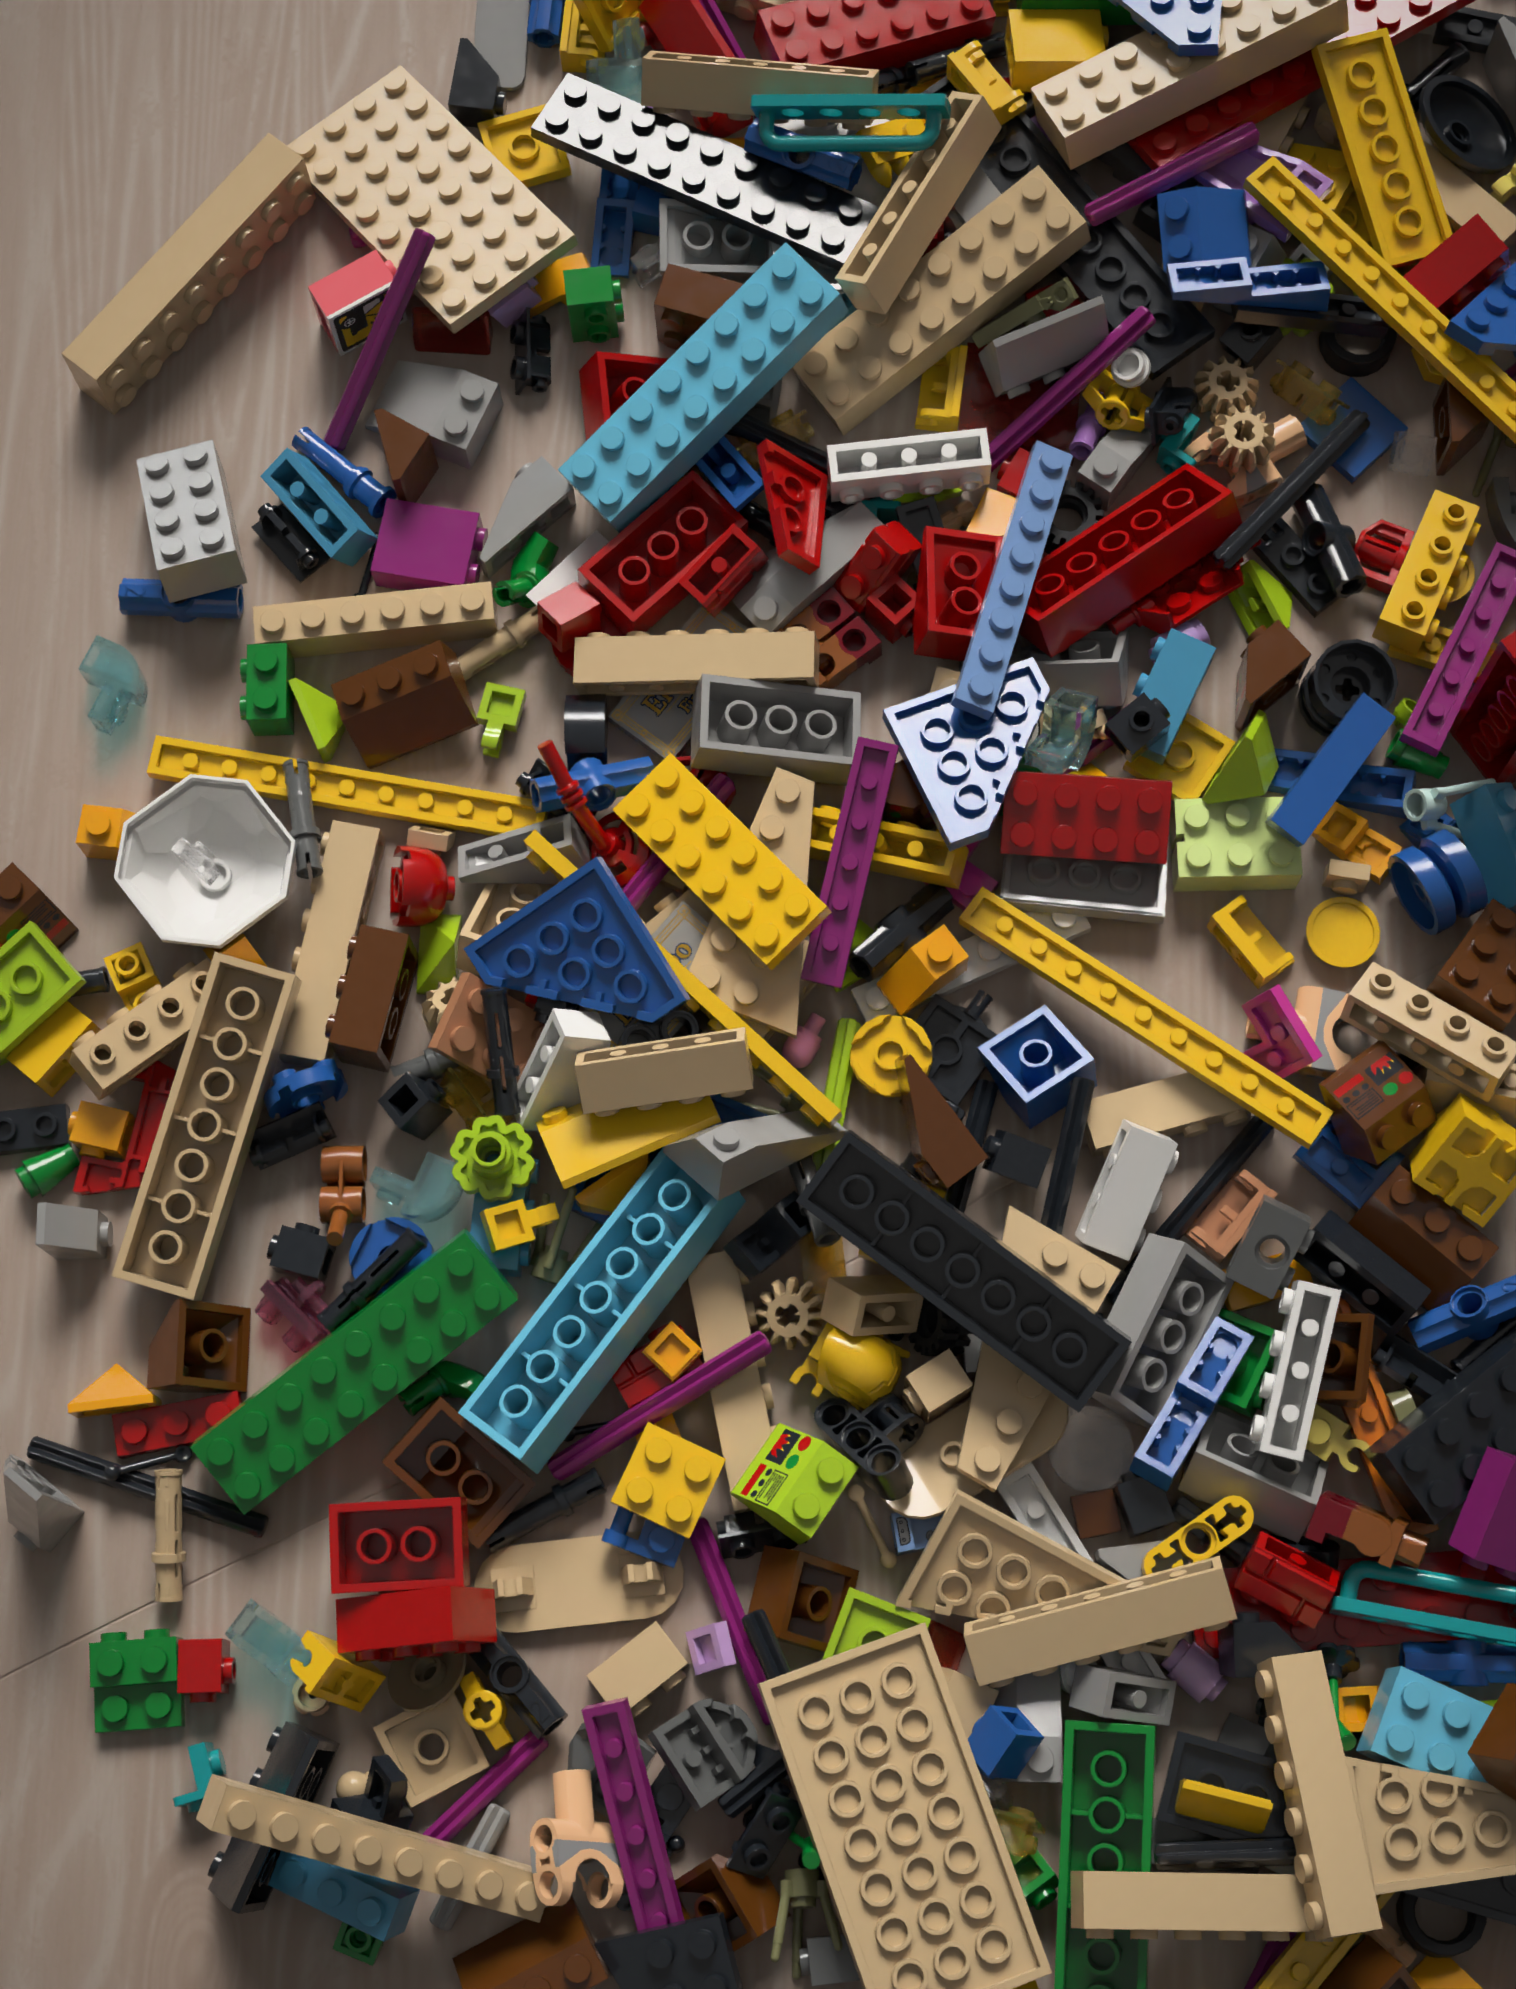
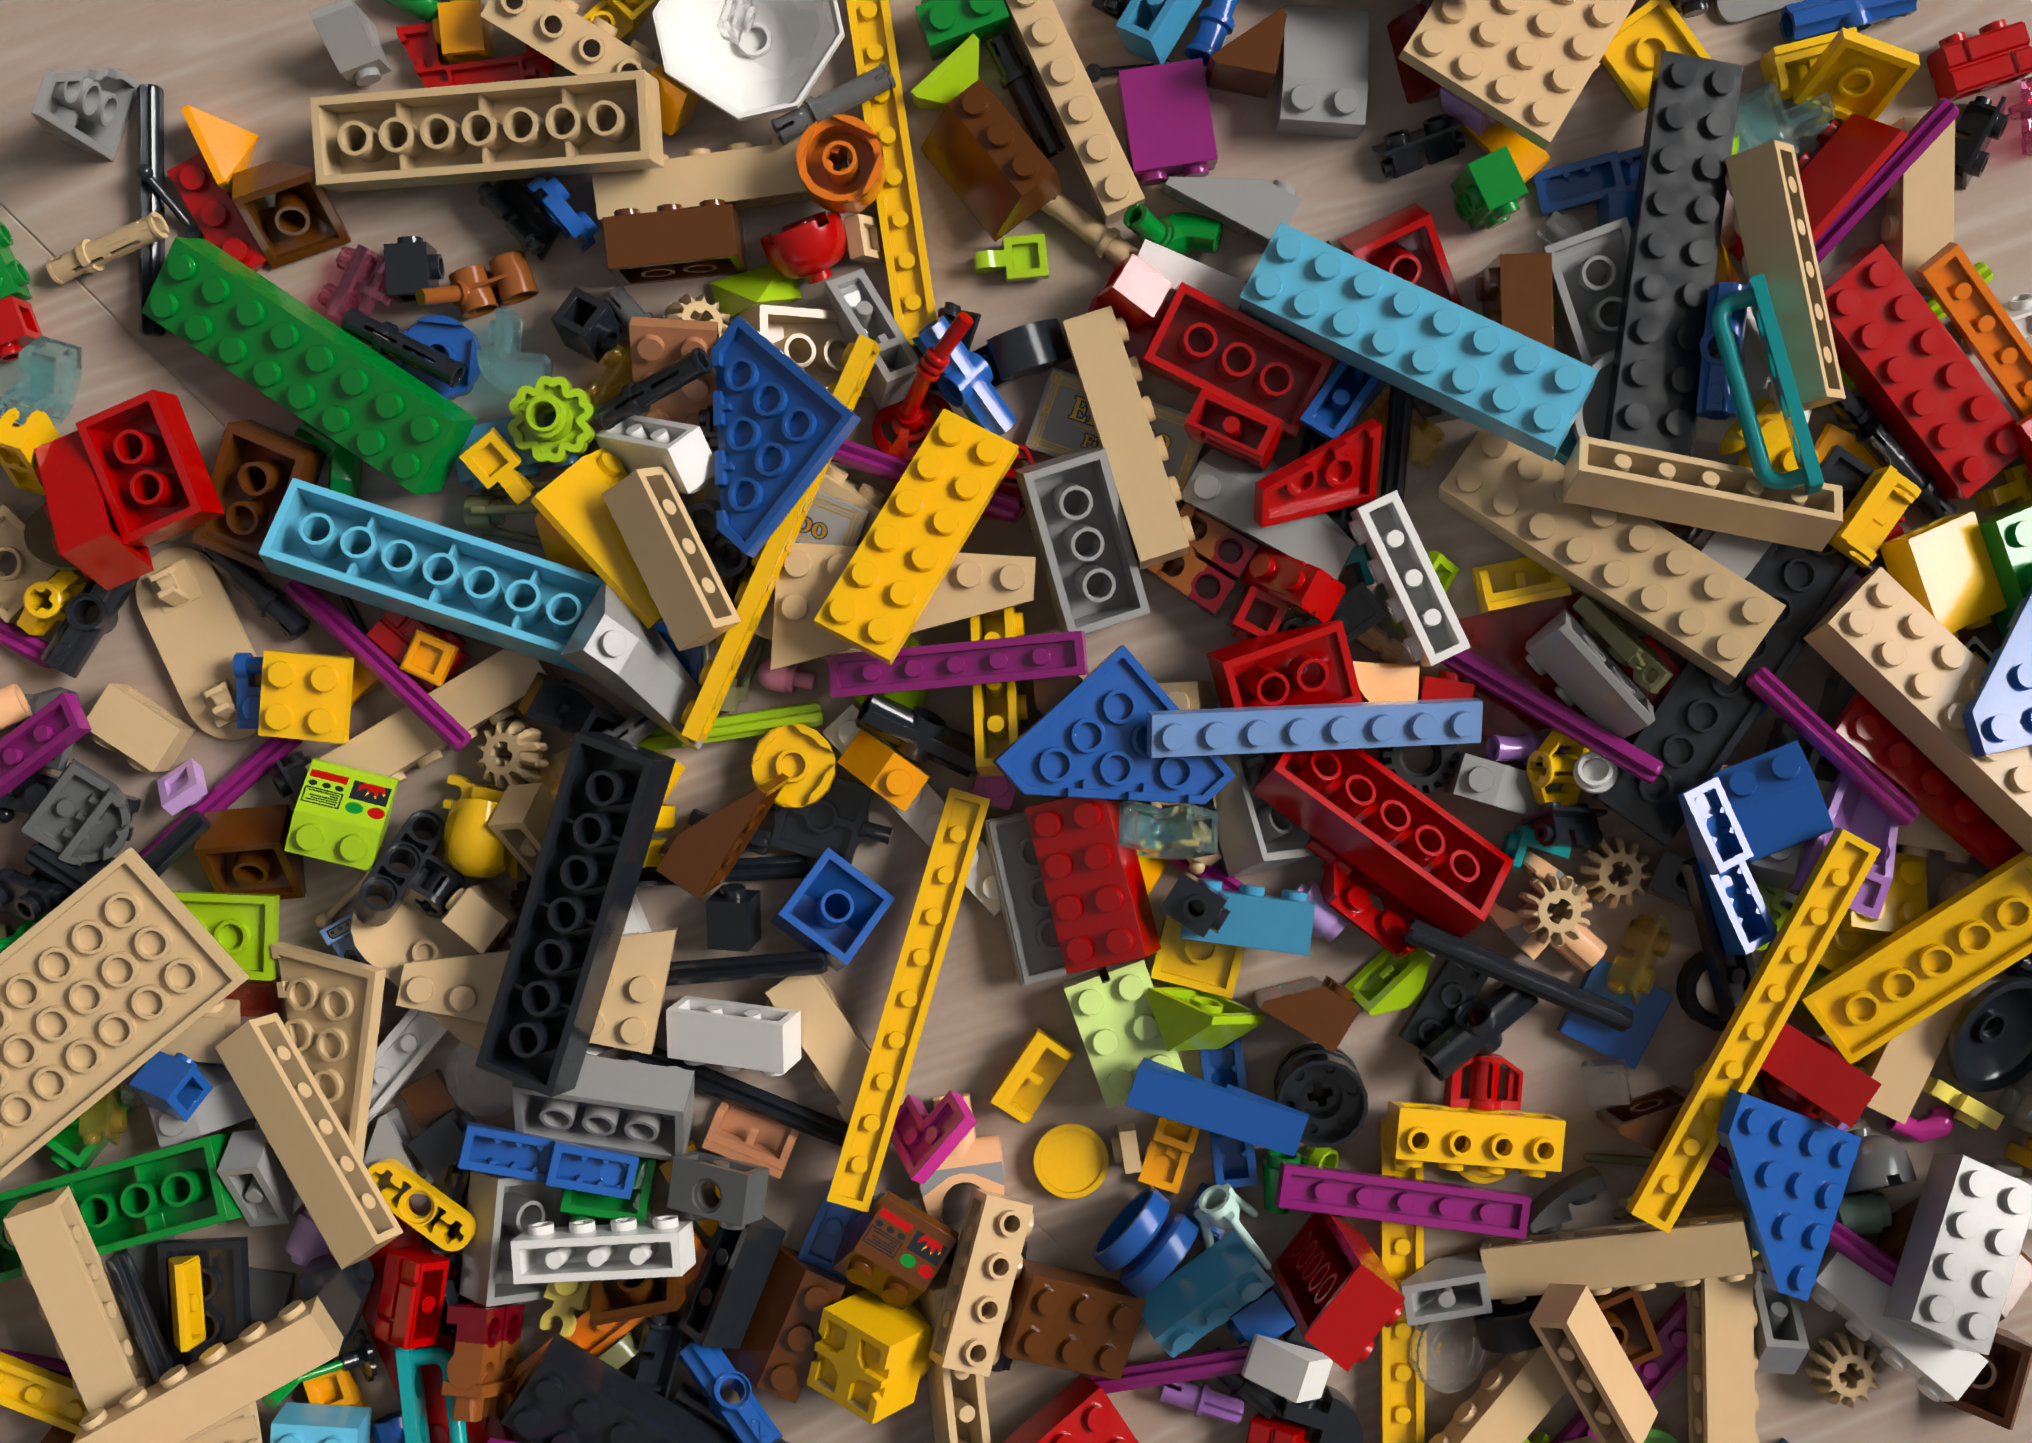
camera: 70 degrees right, 15 degrees up
(348, 662) = (1024, 94): none -> black pin
(374, 802) = (831, 142): none -> orange brick

